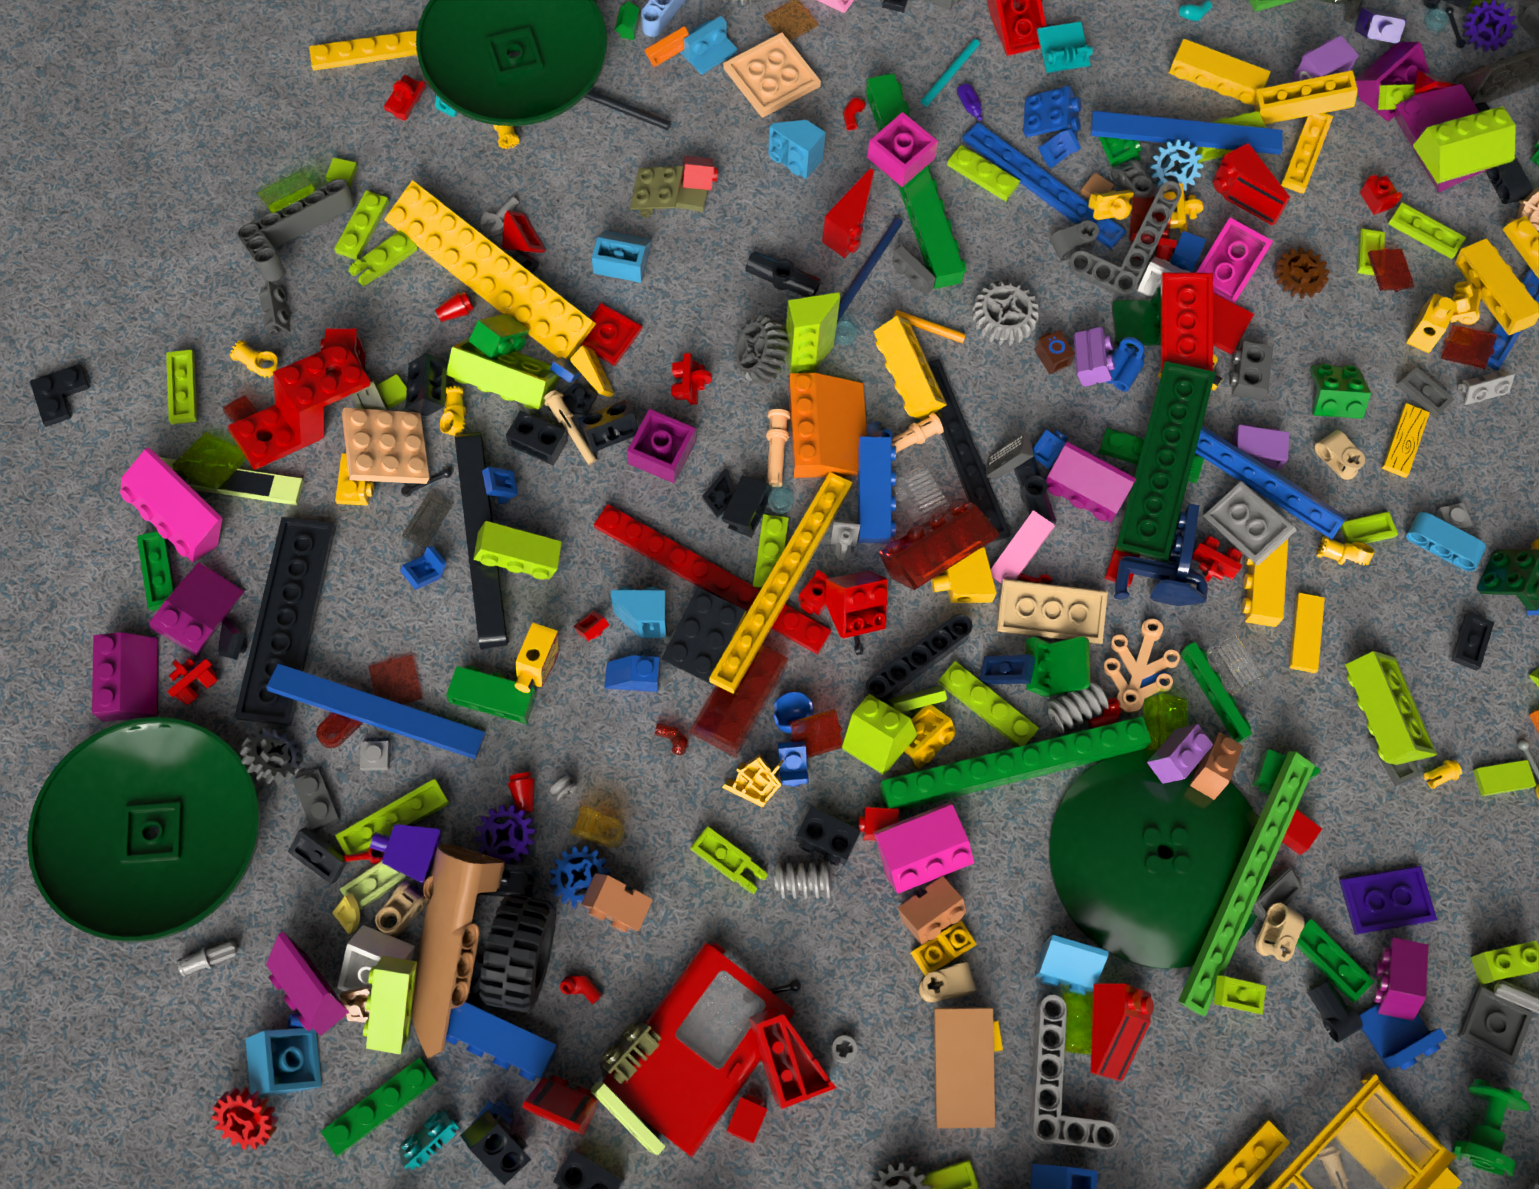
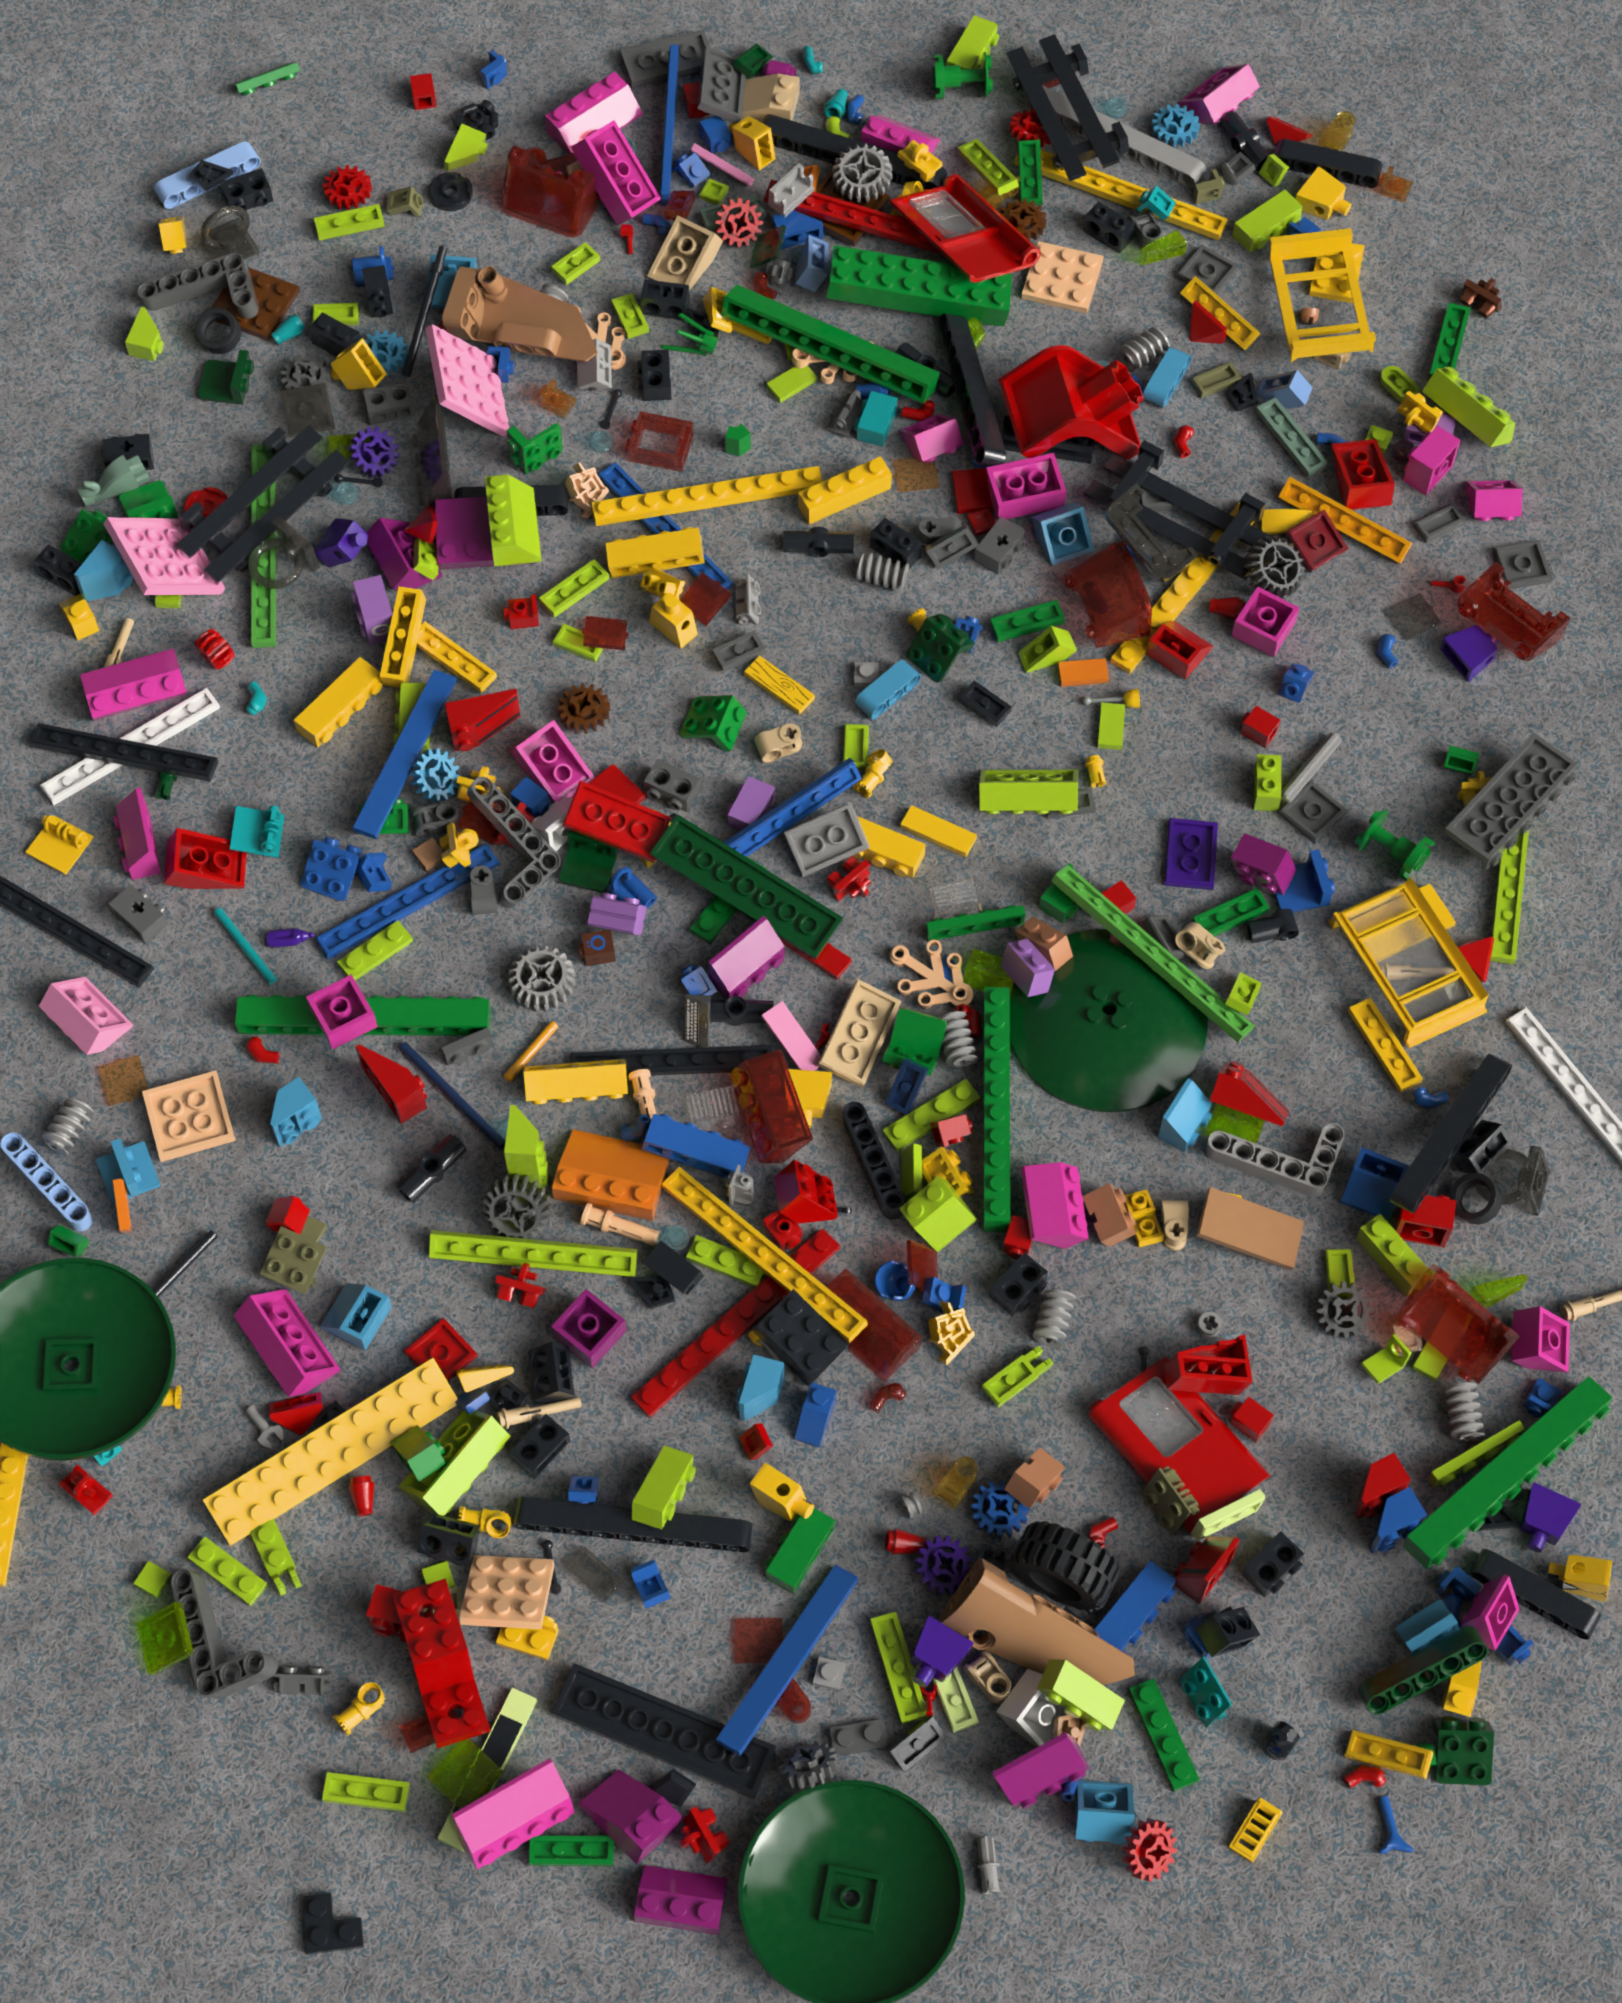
camera: 70 degrees left, 5 degrees down
(348, 913) = (979, 1726): light yellow tile -> none
(582, 208) = (286, 1341): none -> dark pink slope
(725, 383) = (535, 1252): none -> lime plate
(975, 726) = (951, 1130): none -> brick
(1173, 577) = (855, 914): dark blue plate -> none

